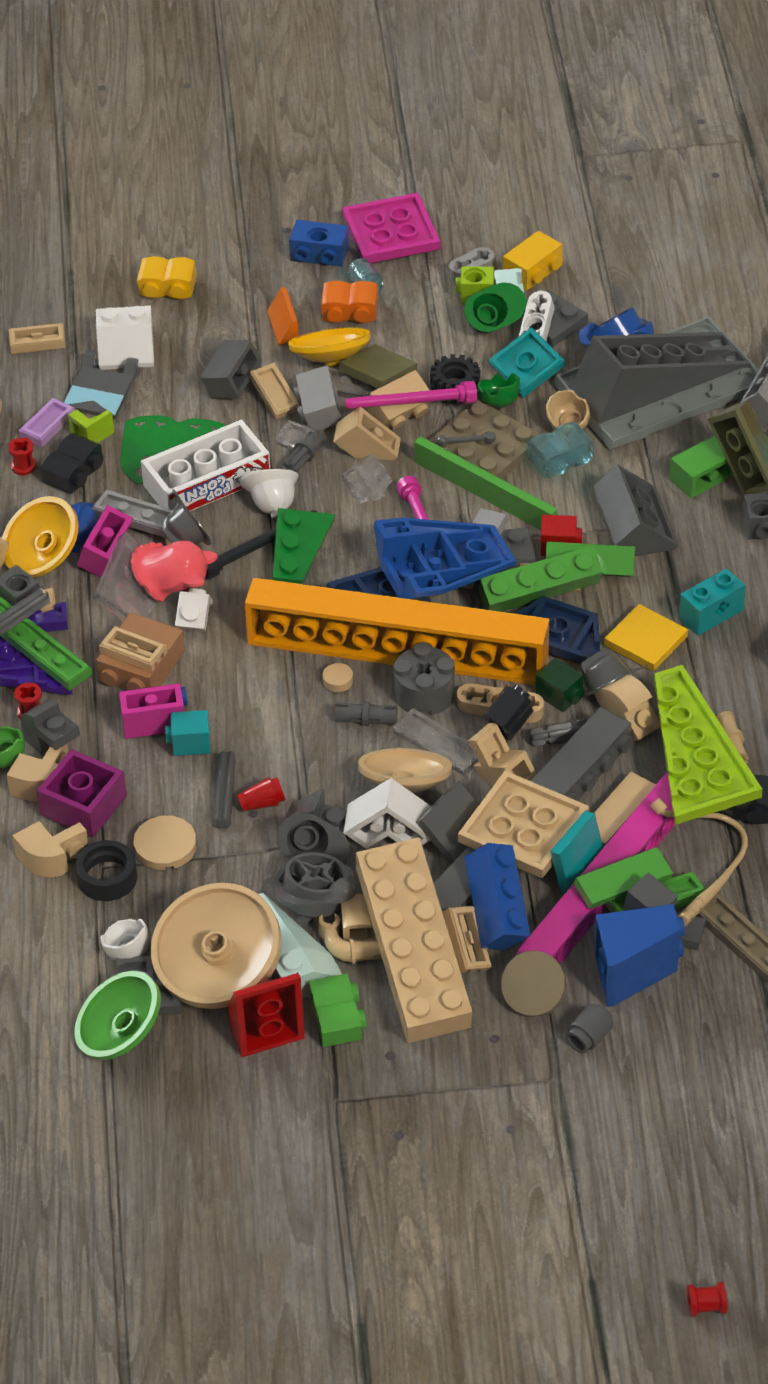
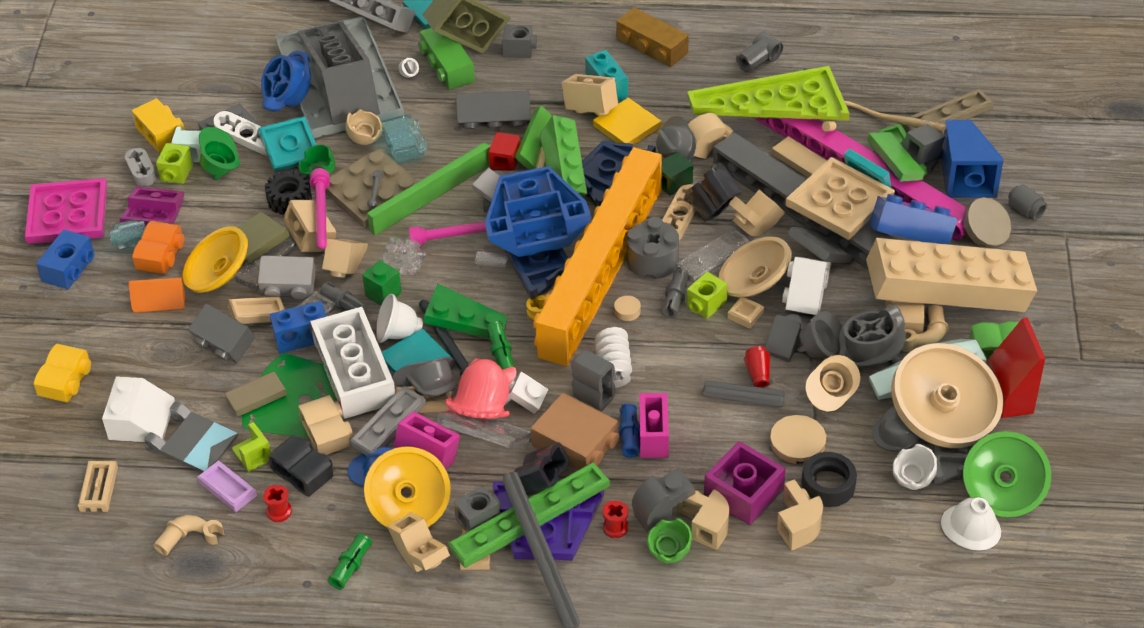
camera: 80 degrees left, 0 degrees up
(59, 1002) = (972, 524): none -> white hat
(68, 626) = (542, 468): none -> black brick
(120, 469) = (324, 425): none -> tan brick
(130, 652) = (587, 428): tan tile -> none
(165, 416) = (255, 394): none -> dark tan tile
(189, 733) = (683, 403): teal brick -> none
(204, 651) = (593, 379): none -> dark grey brick
(232, 851) = (832, 383): none -> tan piece
(234, 521) = (413, 349): none -> teal tile
(242, 582) = (500, 346): none -> green pin
(252, 668) = (613, 346): none -> white piece
(256, 418) = (293, 326): none -> blue brick
(325, 472) = (381, 281): none -> green brick
(349, 780) = (745, 312): none -> tan tile
(361, 735) = (707, 295): none -> lime brick
(411, 289) = (153, 205): none -> magenta slope
(667, 585) = (590, 94): none -> tan brick
(682, 431) = (410, 65): none -> white hinge

